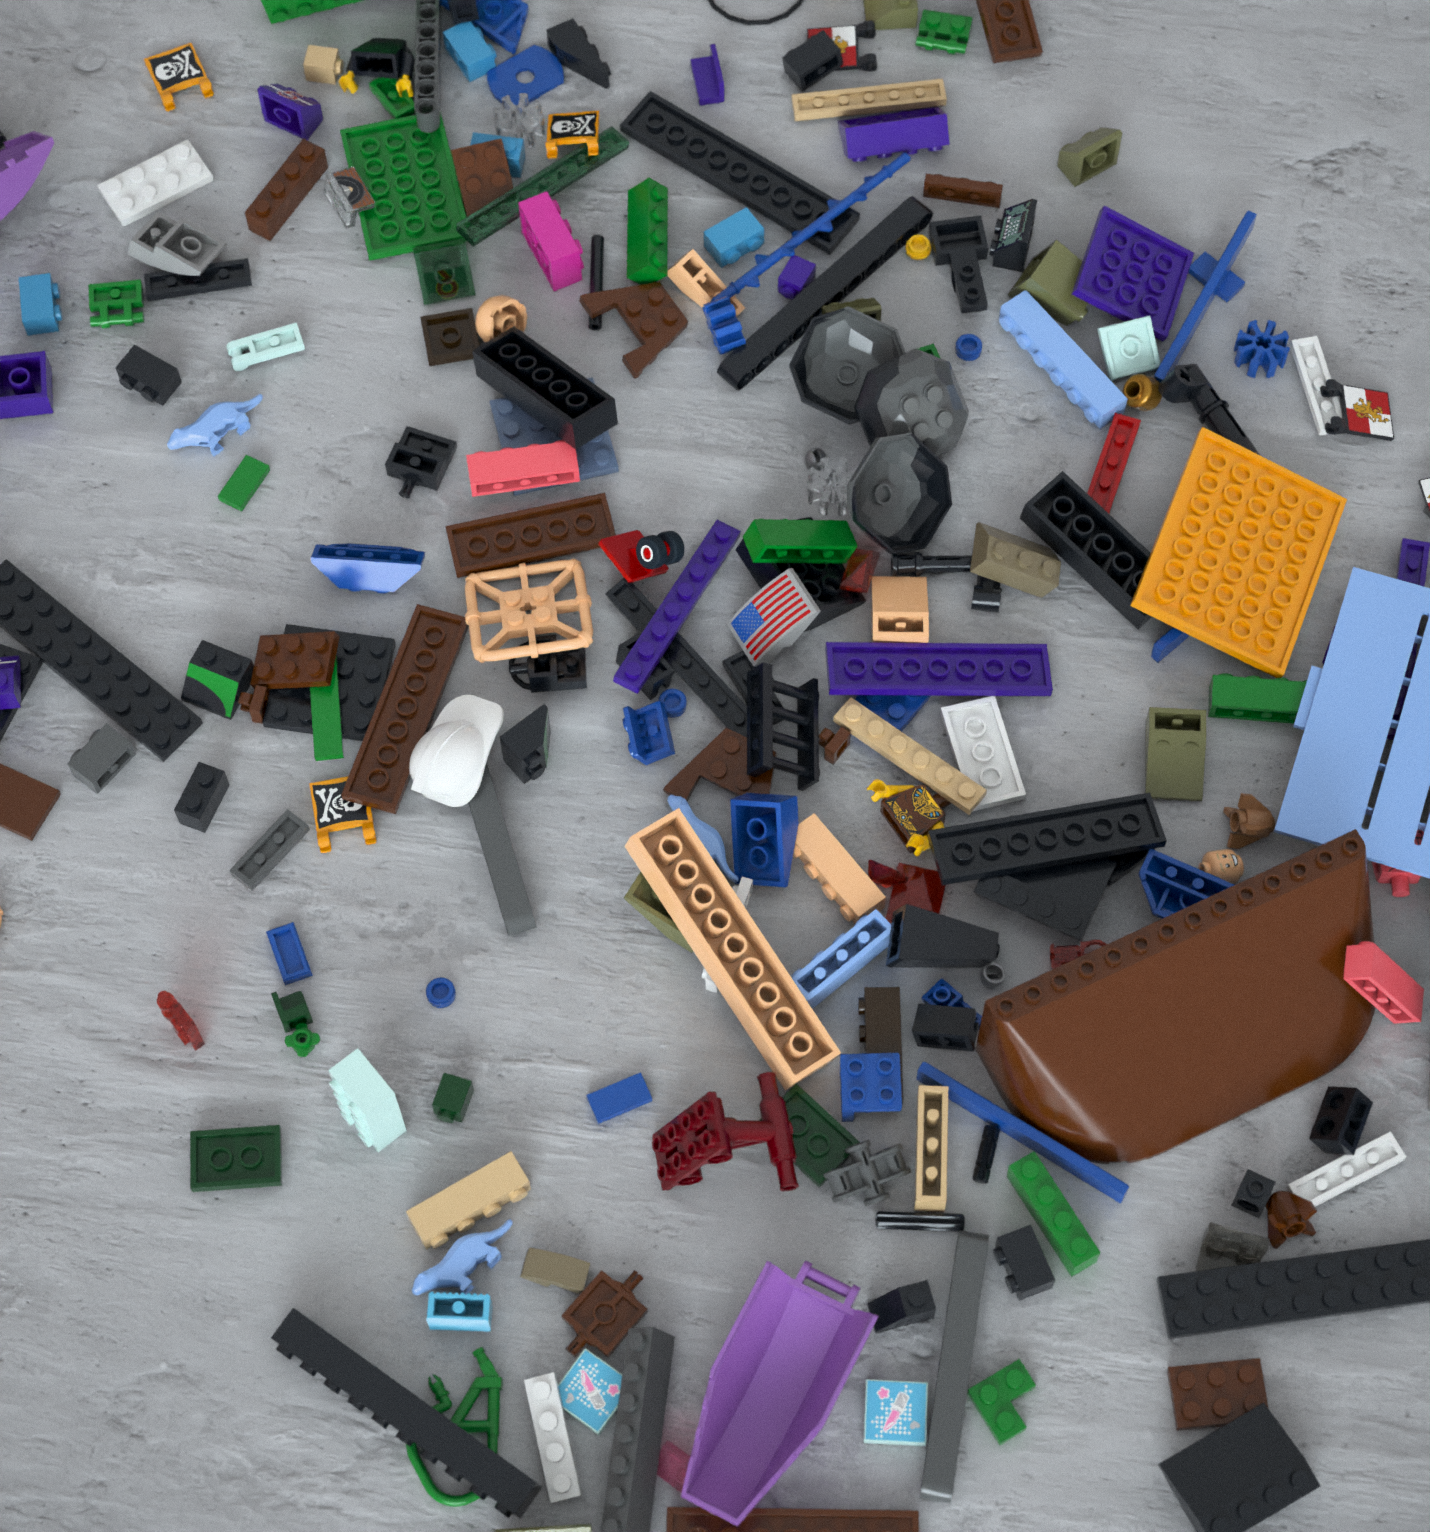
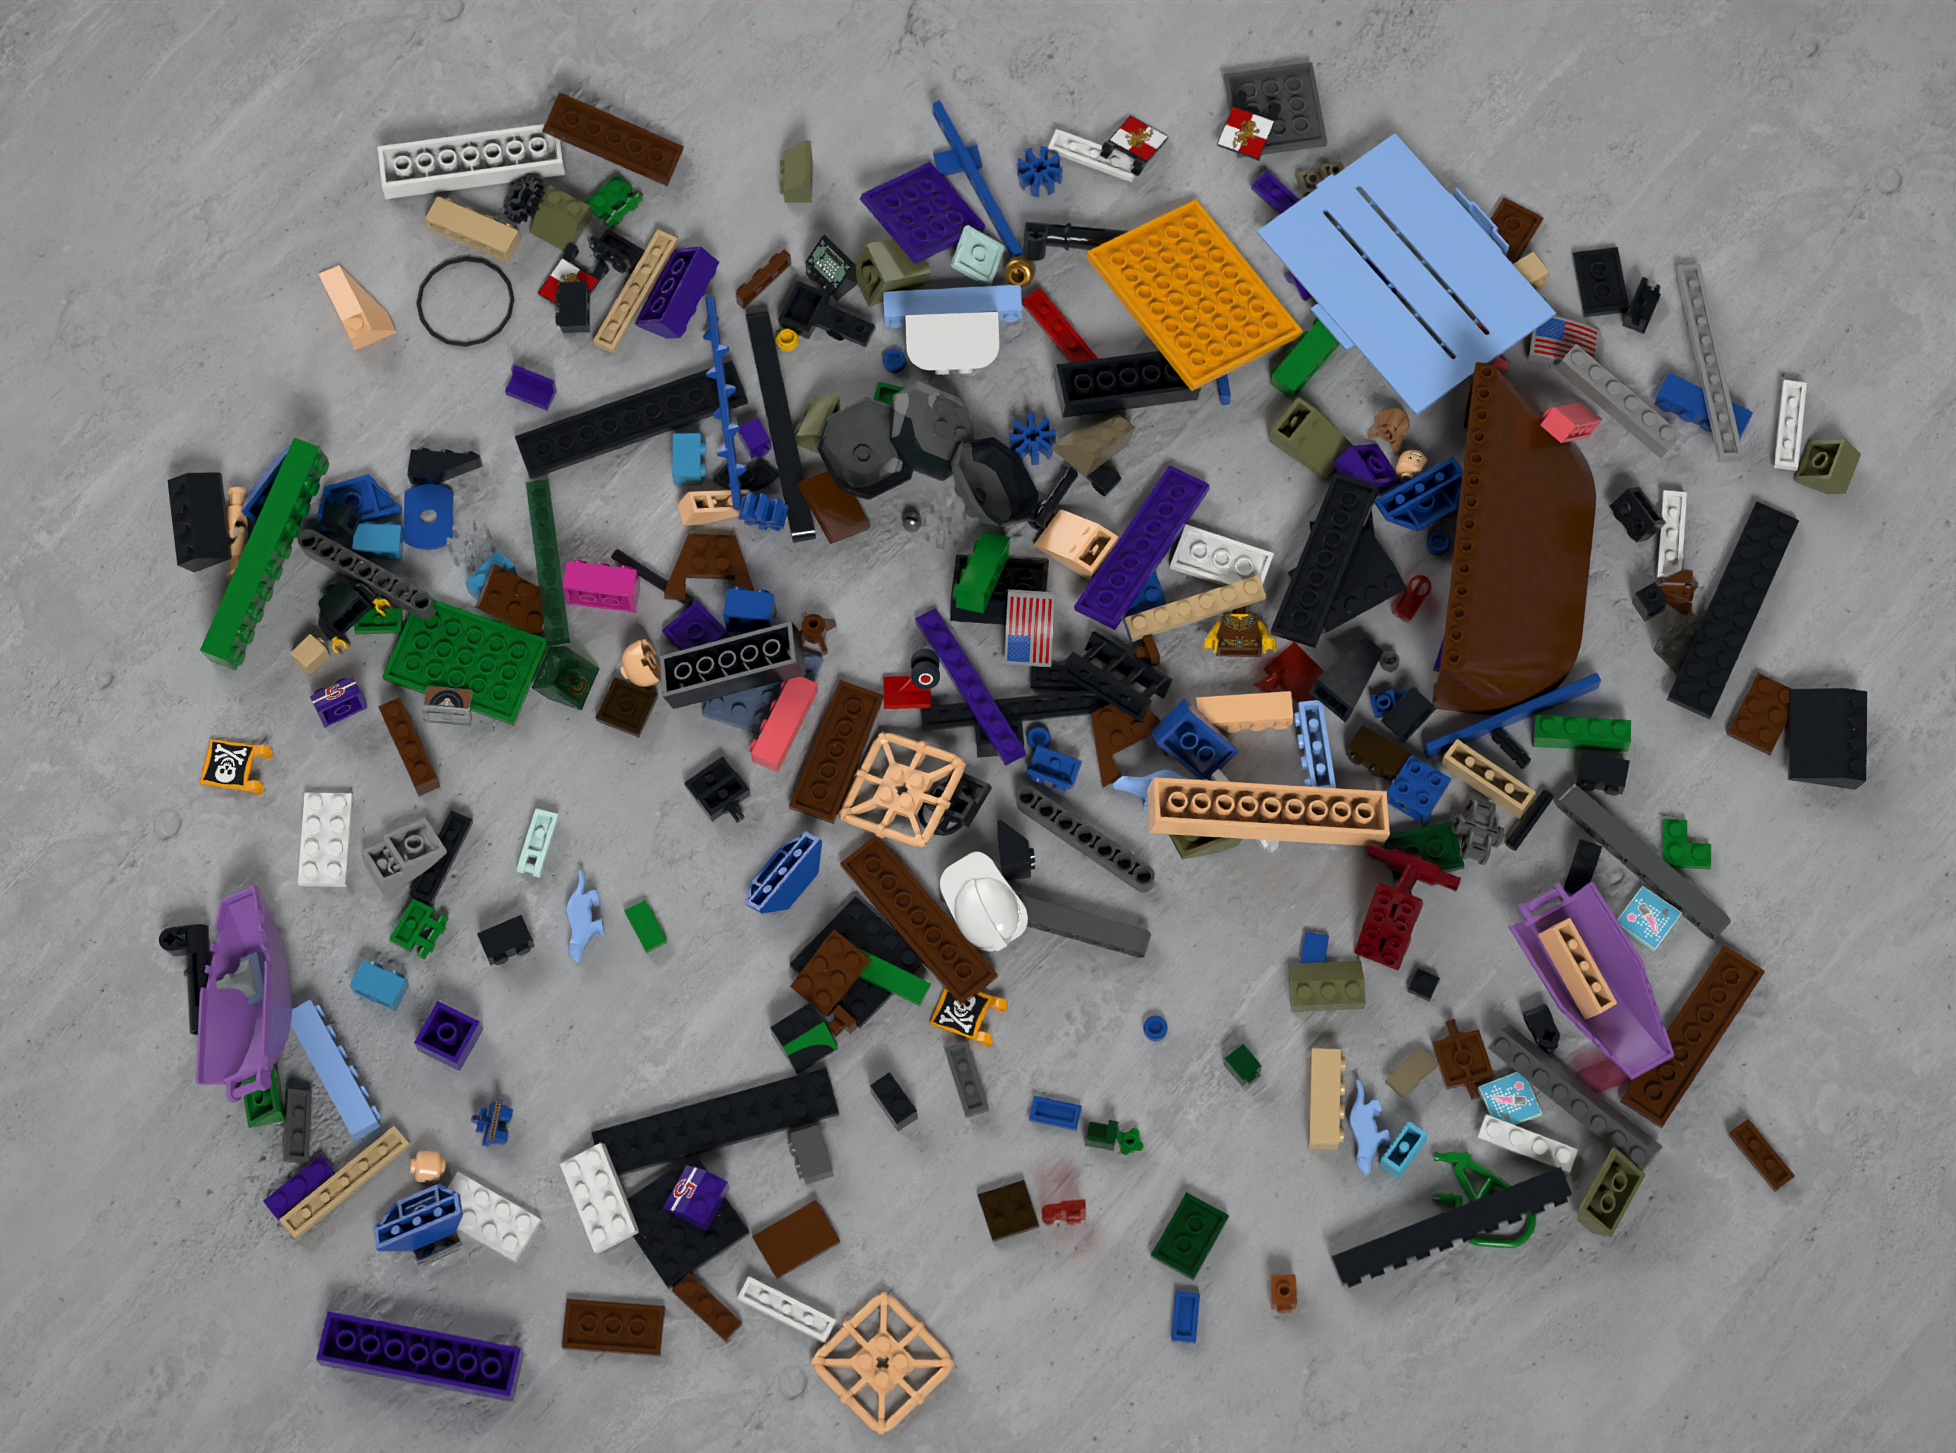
camera: 55 degrees left, 5 degrees up
(148, 1208) = (1185, 1317): none -> blue tile
(157, 968) = (1008, 1210): none -> dark brown plate
(229, 1287) = (1283, 1293): none -> dark orange brick
(366, 1101) = (1221, 1117): light aqua brick -> none
(572, 129) = (508, 510): flag -> none
(572, 344) = (694, 628): none -> dark purple tile
(594, 817) = (1091, 848): none -> dark grey beam
(594, 1127) = (1327, 986): none -> olive slope
(615, 371) = (749, 610): none -> blue brick
(639, 442) = (815, 629): none -> reddish brown brick
(647, 232) = (641, 515): green brick -> none
(663, 1225) = (1423, 984): none -> black plate
(693, 1371) = (1541, 1024): none -> black piece
(756, 300) = (752, 479): none -> black tile
(770, 386) = (833, 509): none -> reddish brown tile
(774, 1364) = (1577, 968): none -> light nougat brick
(860, 570) = (1026, 548): clear red slope -> none
(893, 57) = (616, 250): none -> black bracket
(978, 506) = (1043, 439): none -> blue gear
(1019, 373) = (952, 341): none -> white brick
(1187, 826) = (1367, 465): none -> dark purple slope

